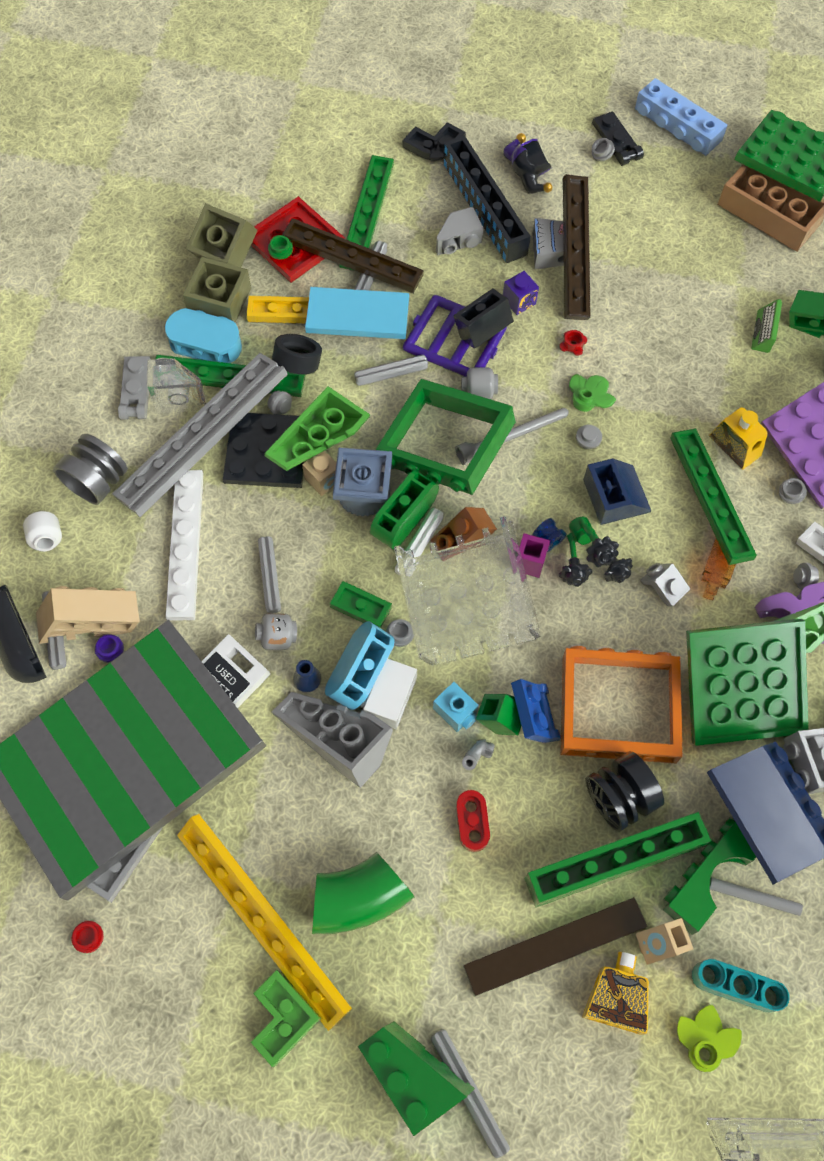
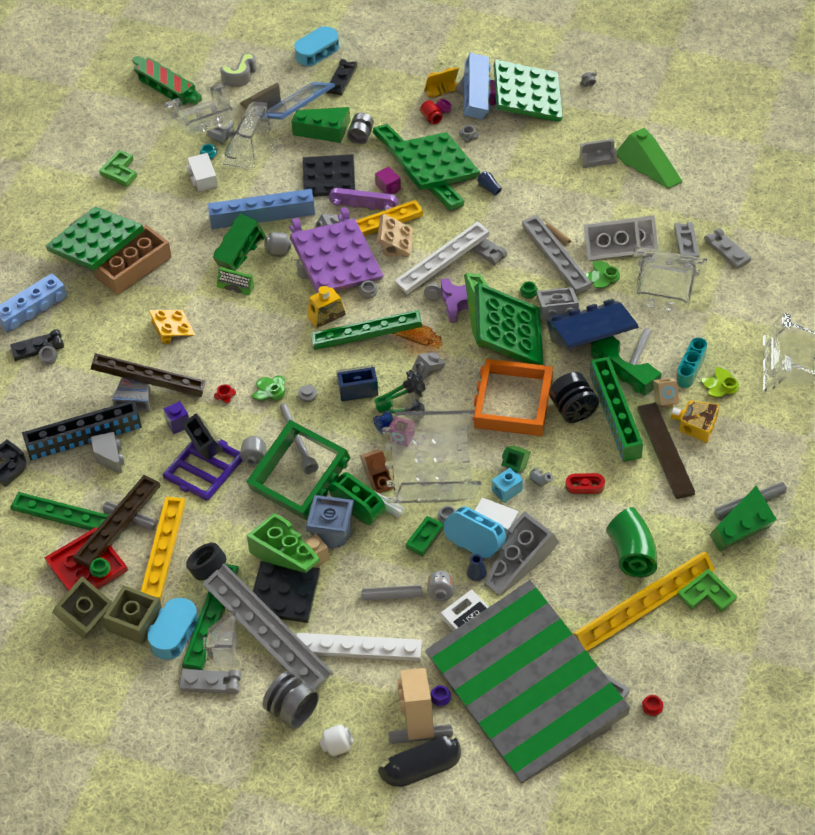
camera: 80 degrees left, 15 degrees down
(279, 402) = (246, 578): light grey plate -> none
(357, 313) = (175, 520): medium azure tile -> none
(391, 370) = (227, 508): light grey axle -> none
(528, 162) = (49, 402): black piece -> none
(535, 711) = (507, 440): blue plate -> none
(677, 266) = (170, 323): none -> yellow hinge

